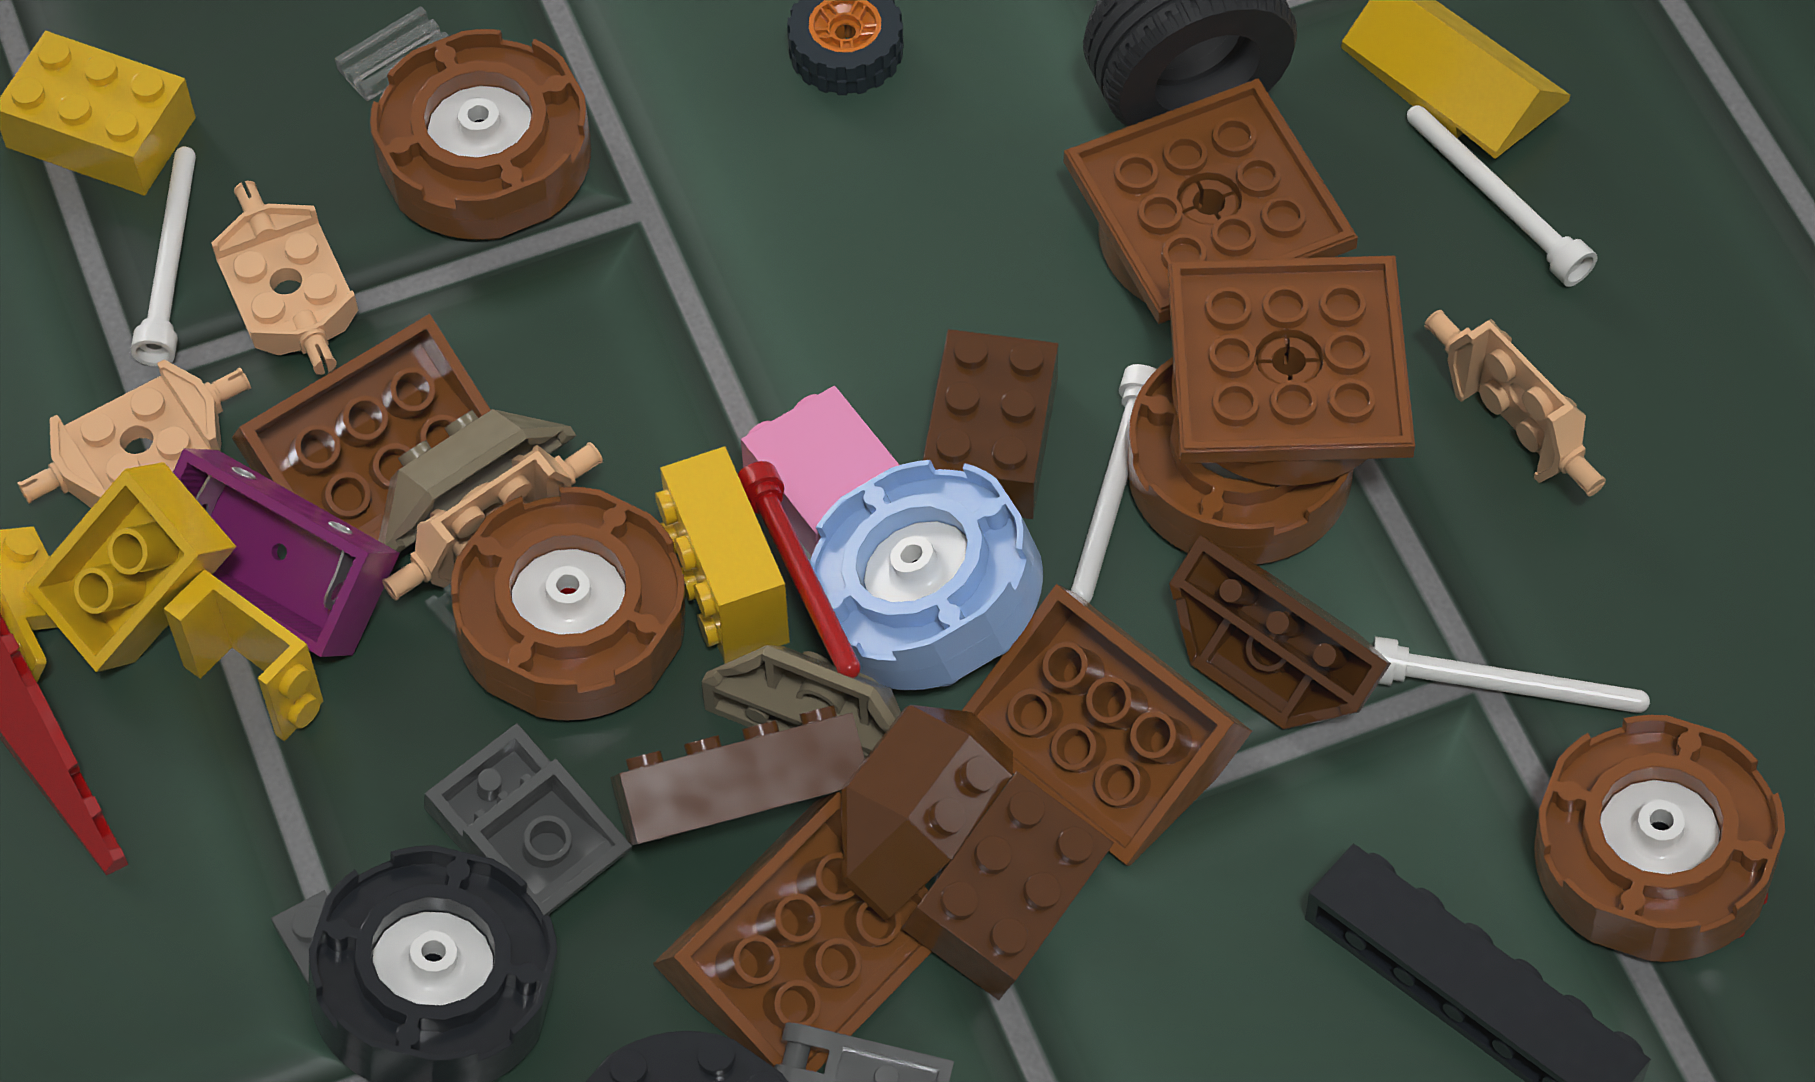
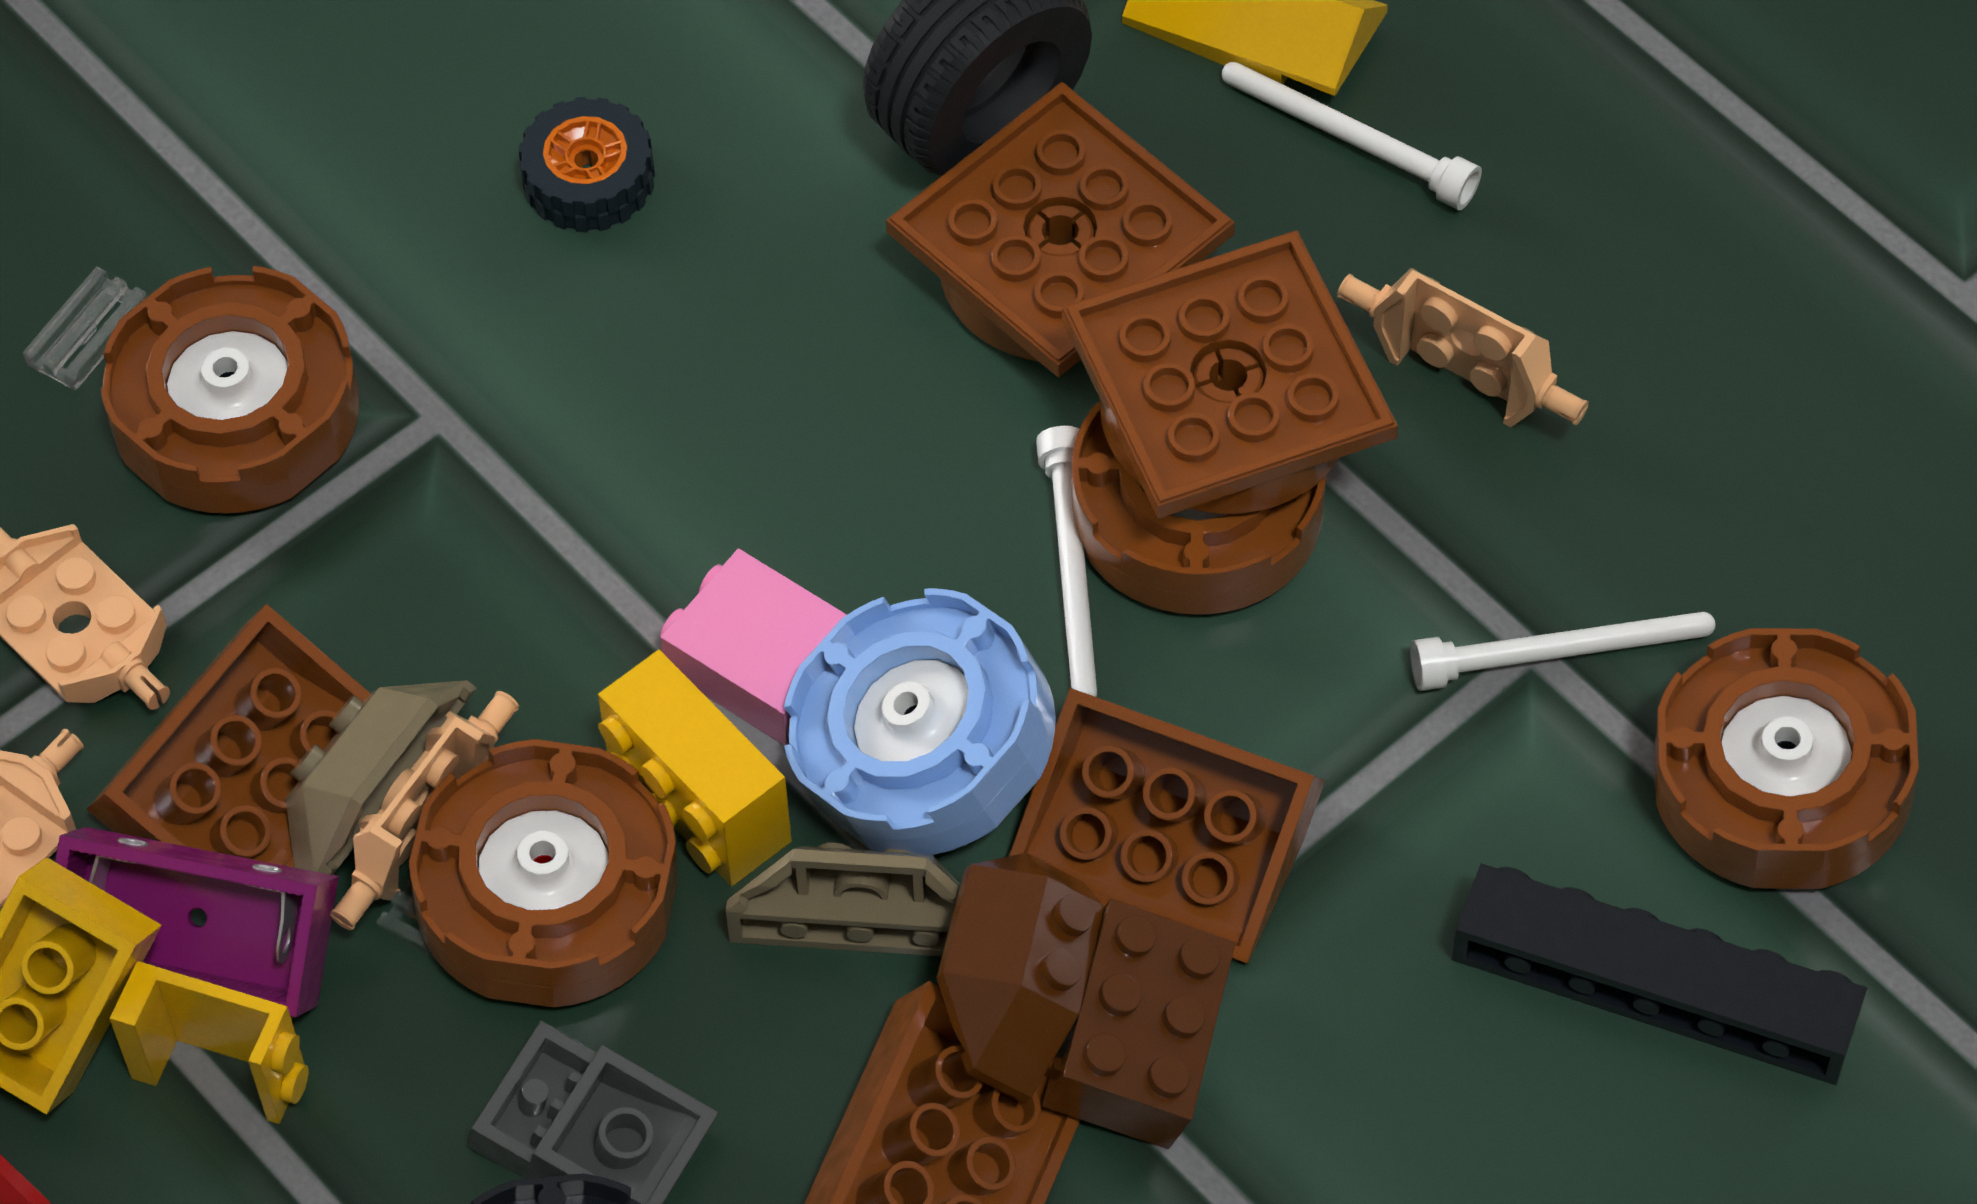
camera: 20 degrees left, 0 degrees up
(737, 778) = (811, 1004): reddish brown wedge -> none
(765, 495) = (716, 683): red piece -> none
(995, 410) = (916, 519): reddish brown brick -> none
(1270, 640) = (1309, 680): reddish brown wedge -> none

